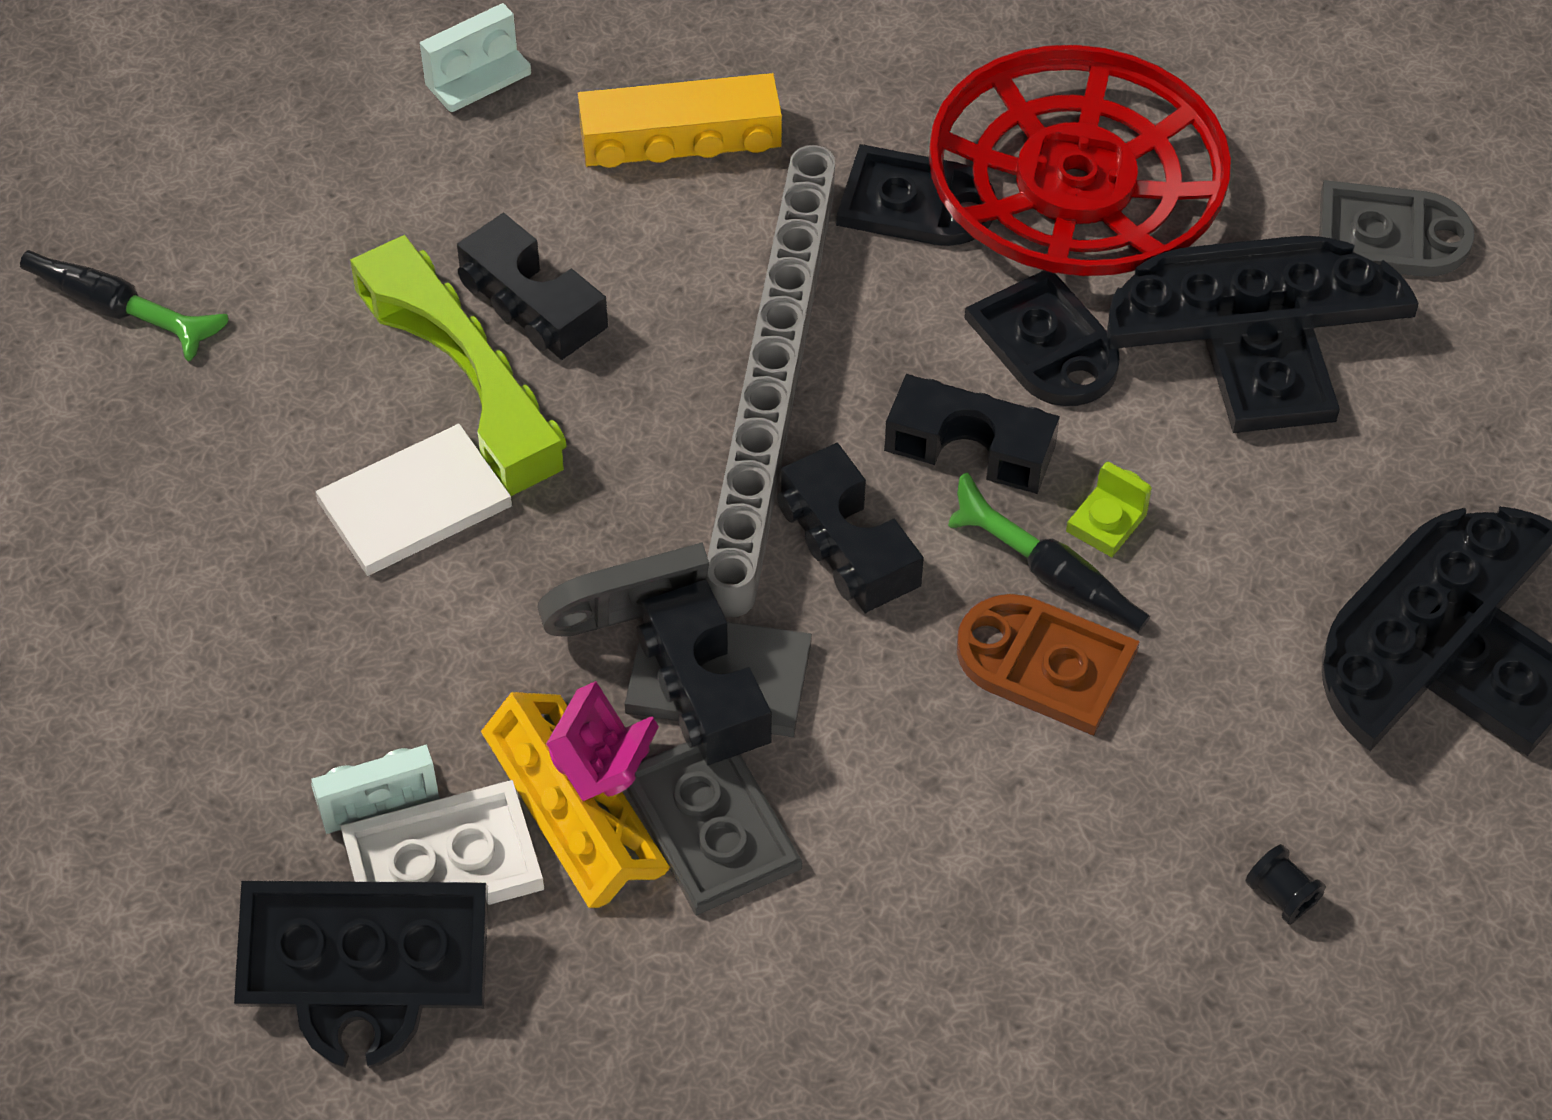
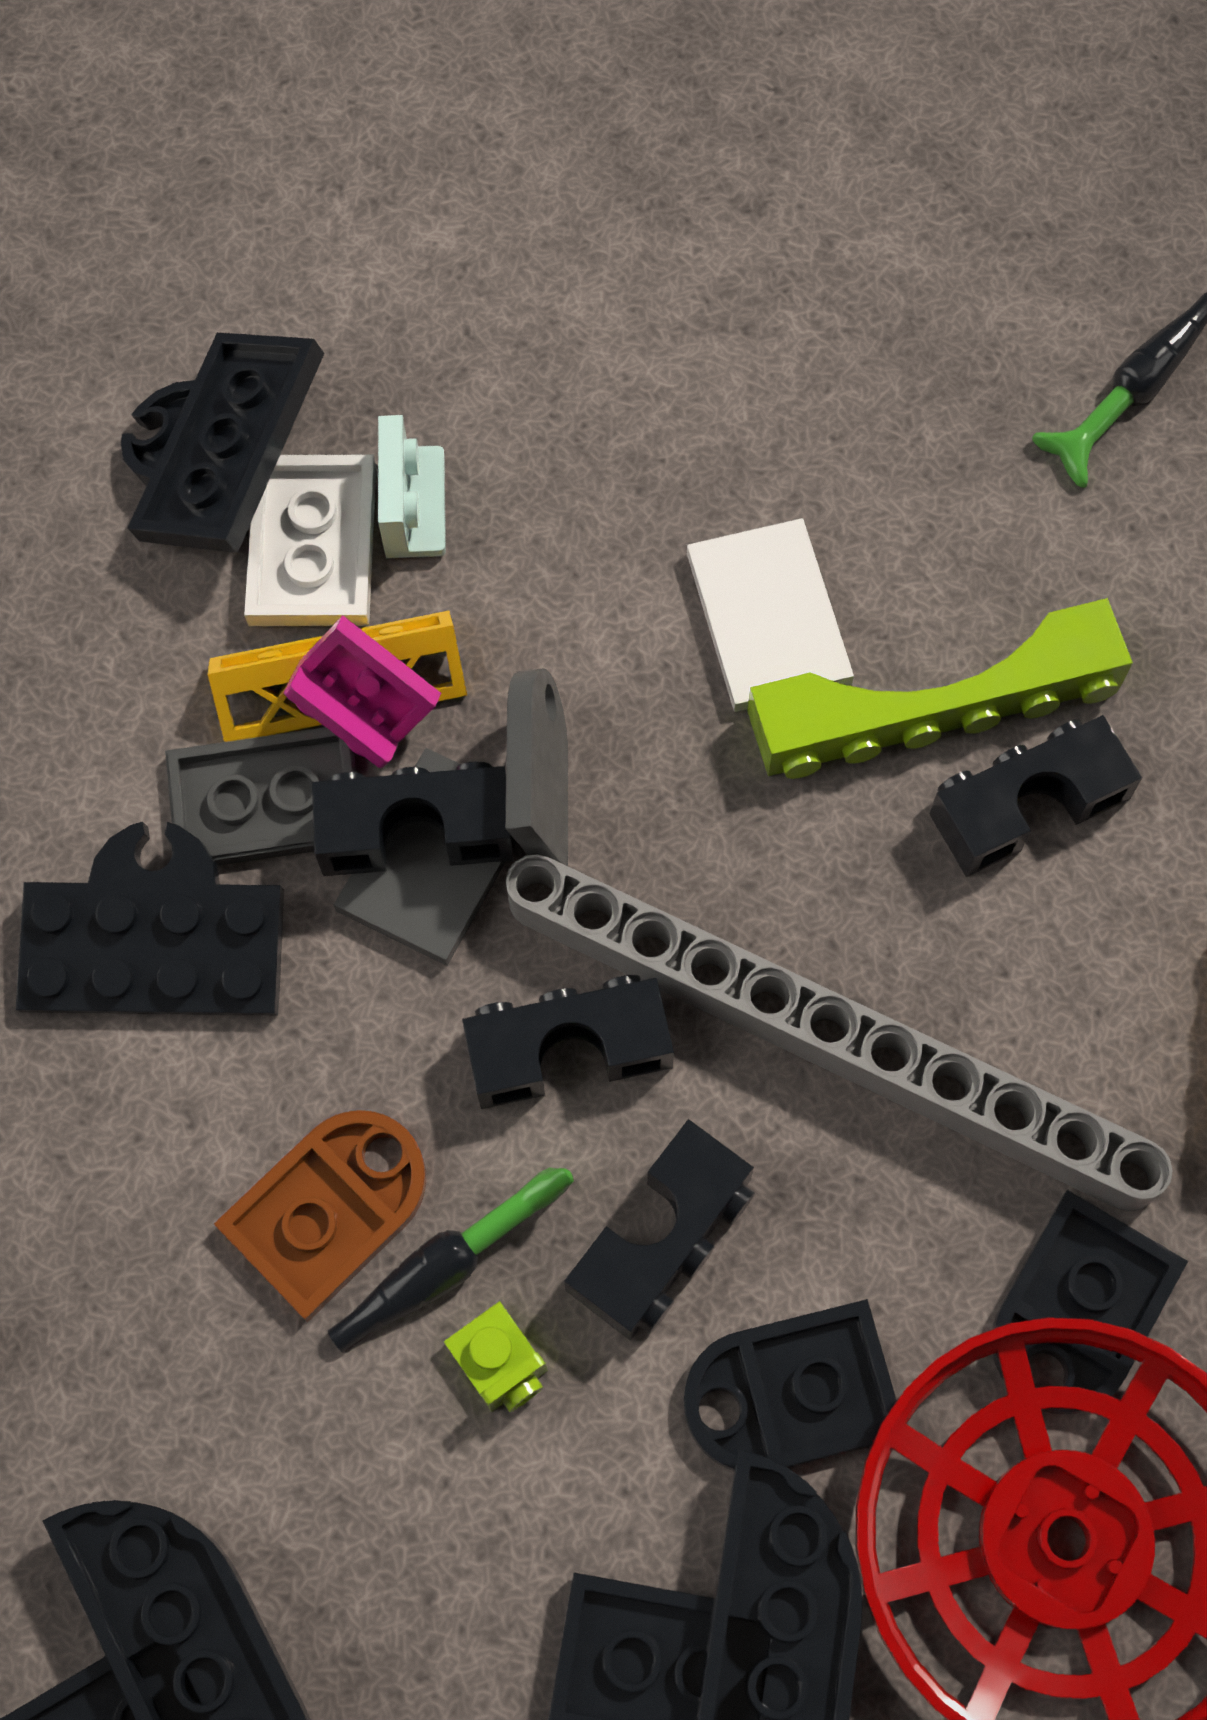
camera: 110 degrees right, 15 degrees up
(874, 857) = (150, 937): none -> black plate

